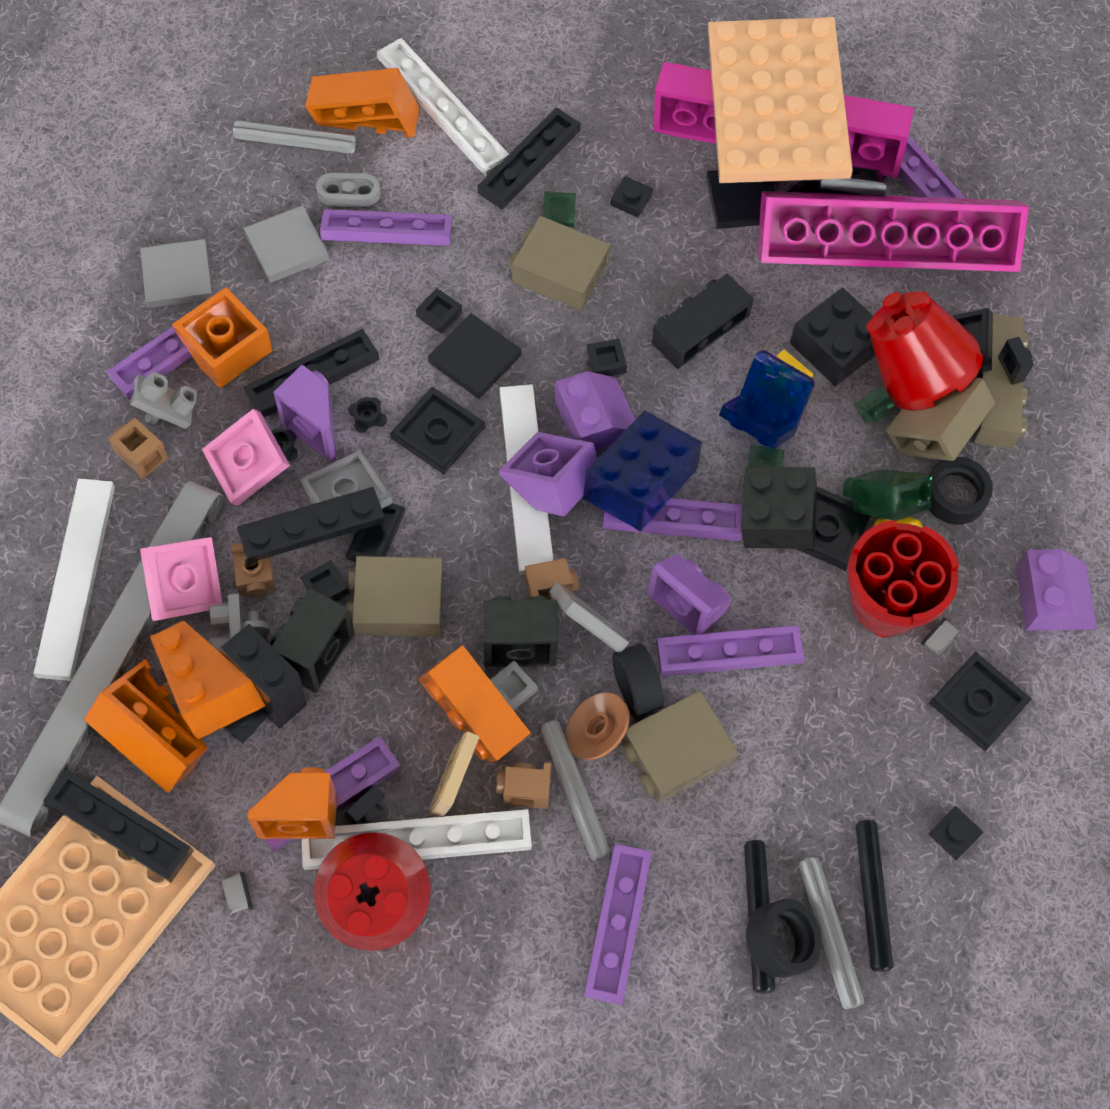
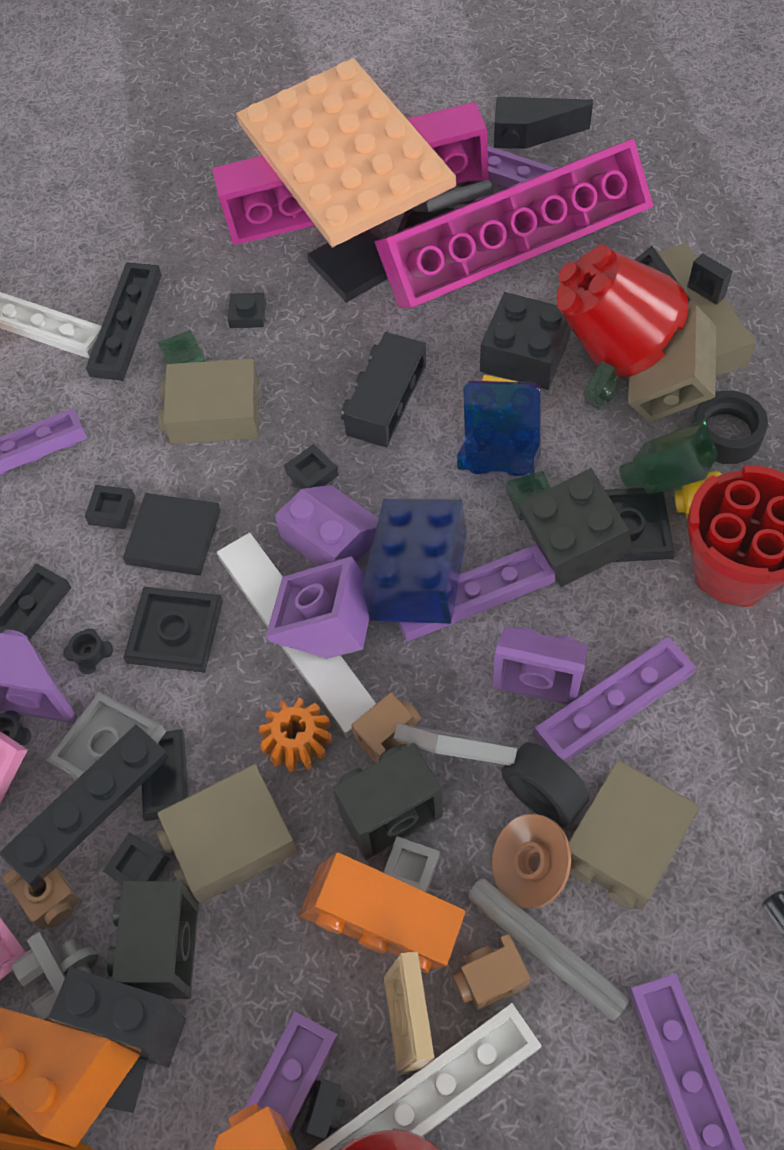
camera: 20 degrees left, 5 degrees down
(485, 563) = (306, 744): none -> orange gear
(974, 141) = (534, 121): none -> black slope

